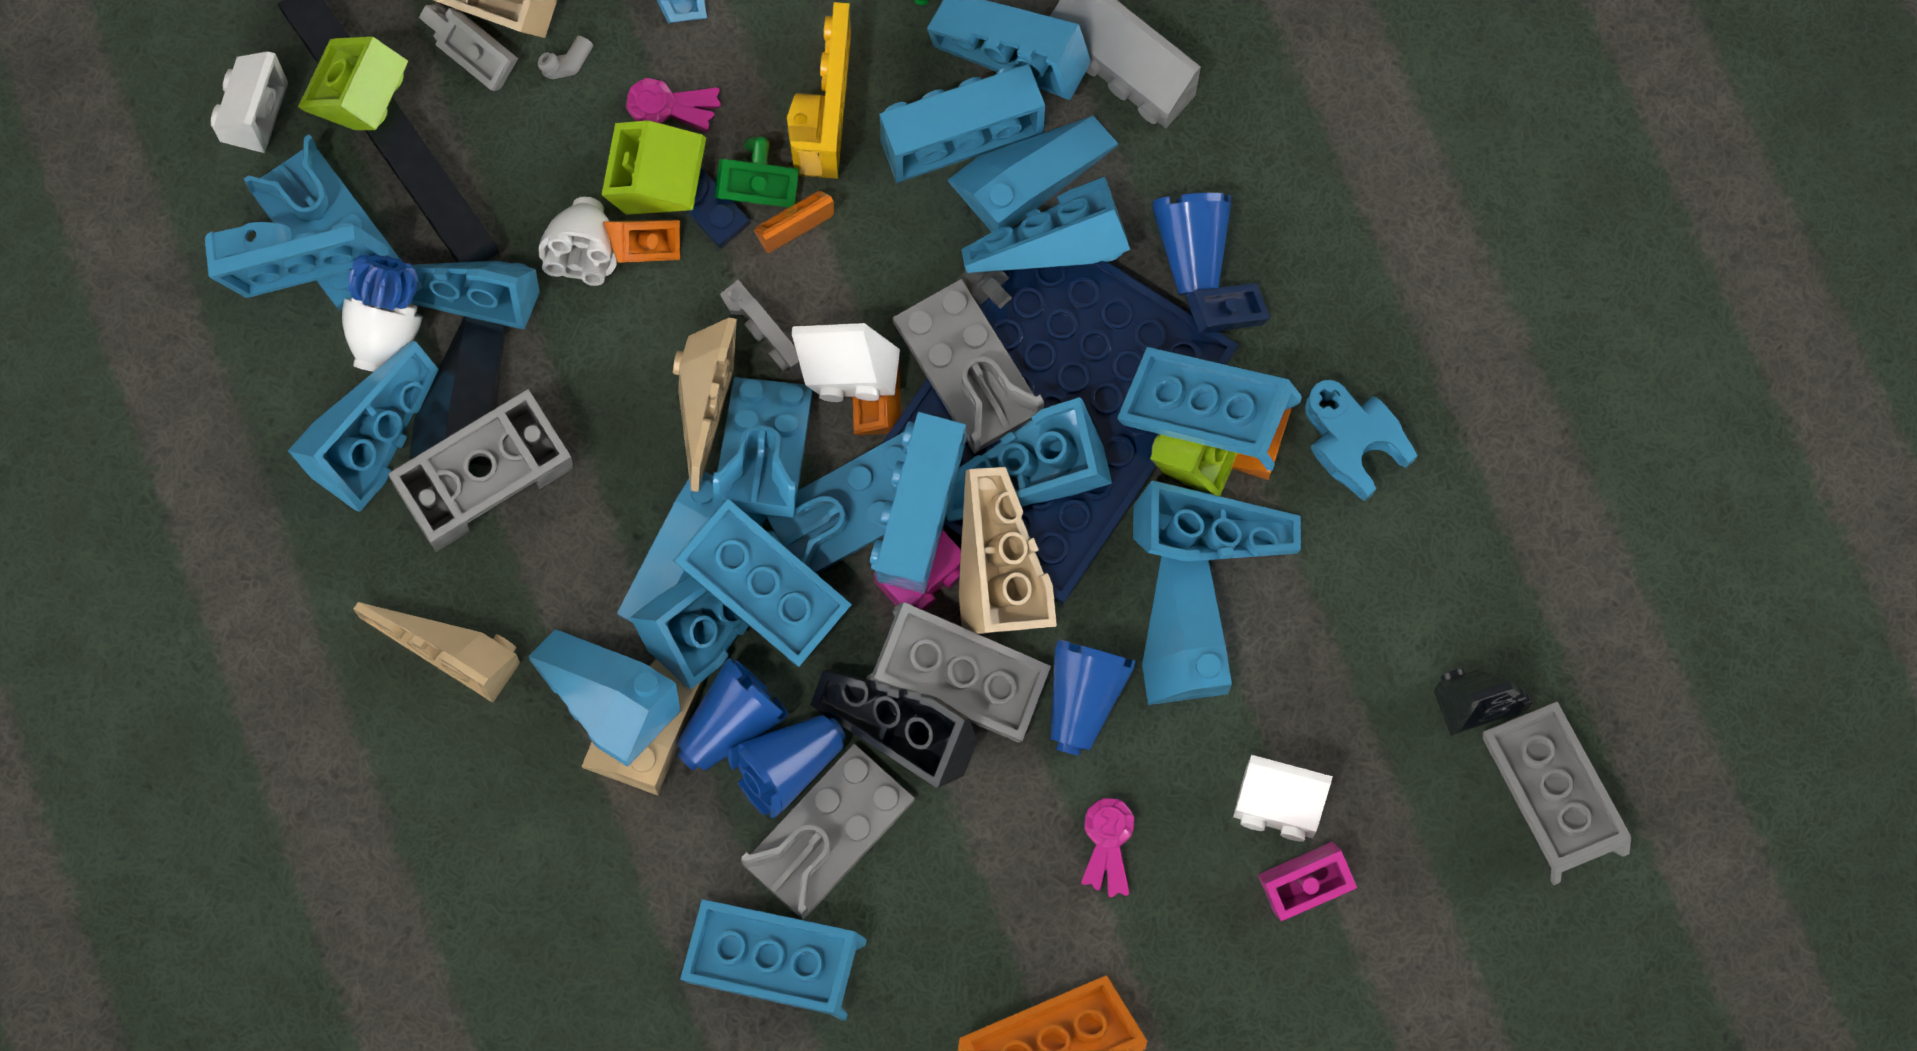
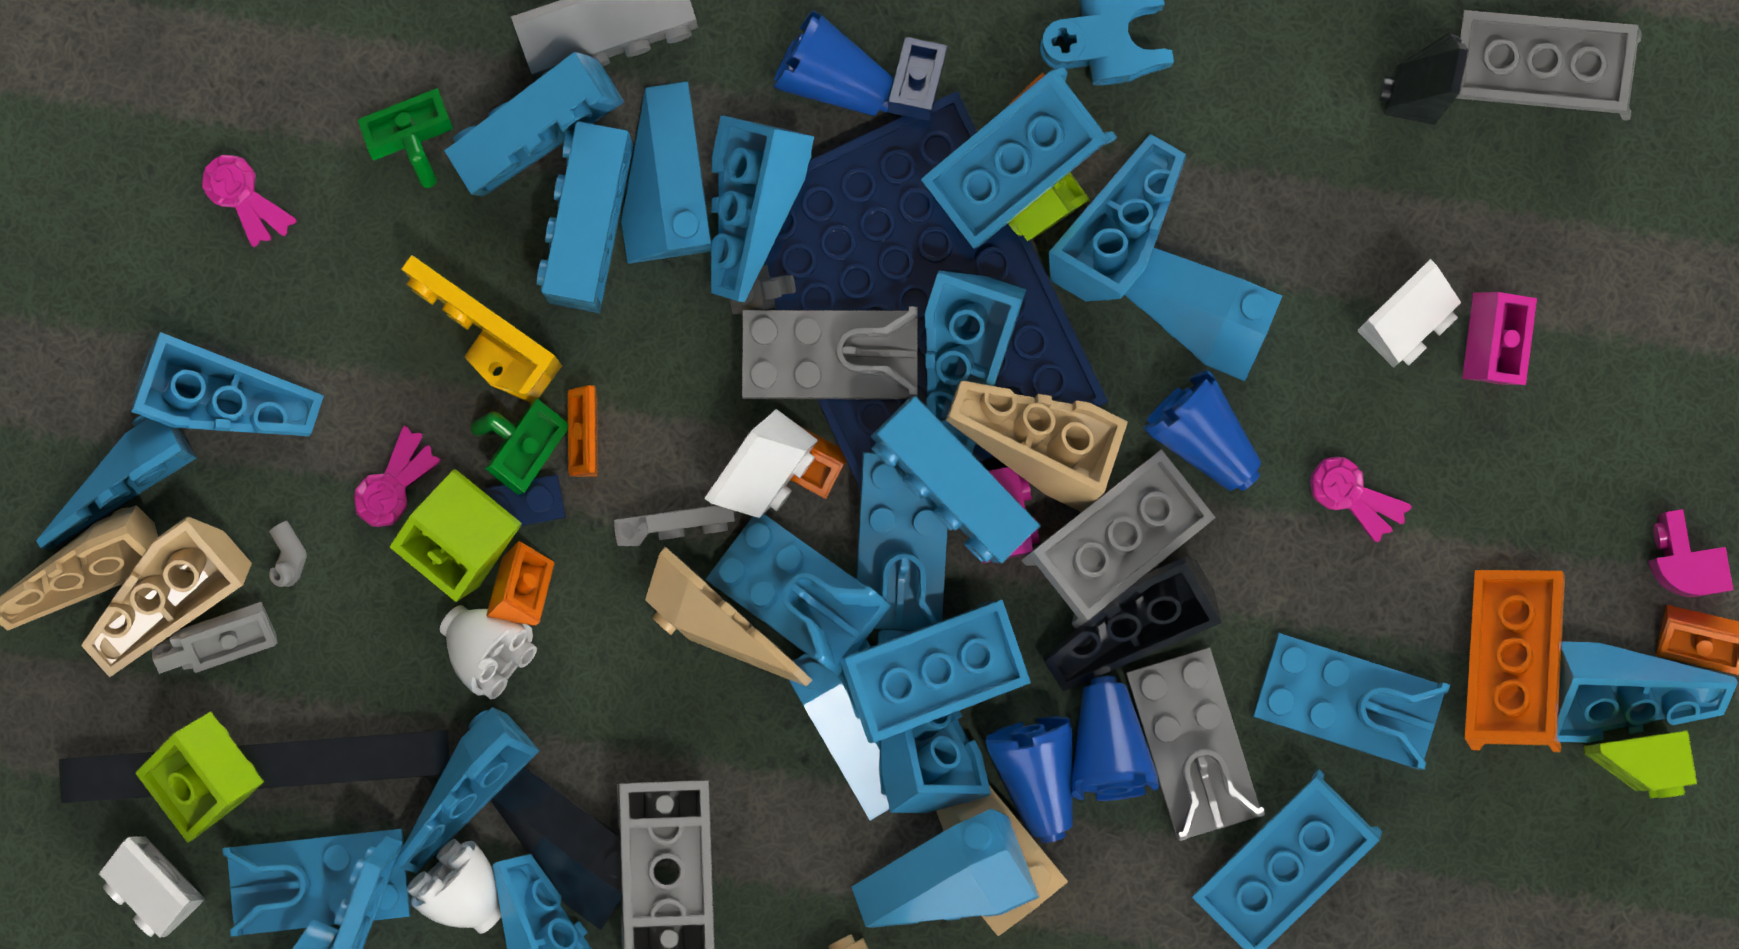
camera: 55 degrees left, 10 degrees up
(382, 281) = (428, 862): blue gear -> none
(938, 937) = (1349, 701): none -> dark azure plate

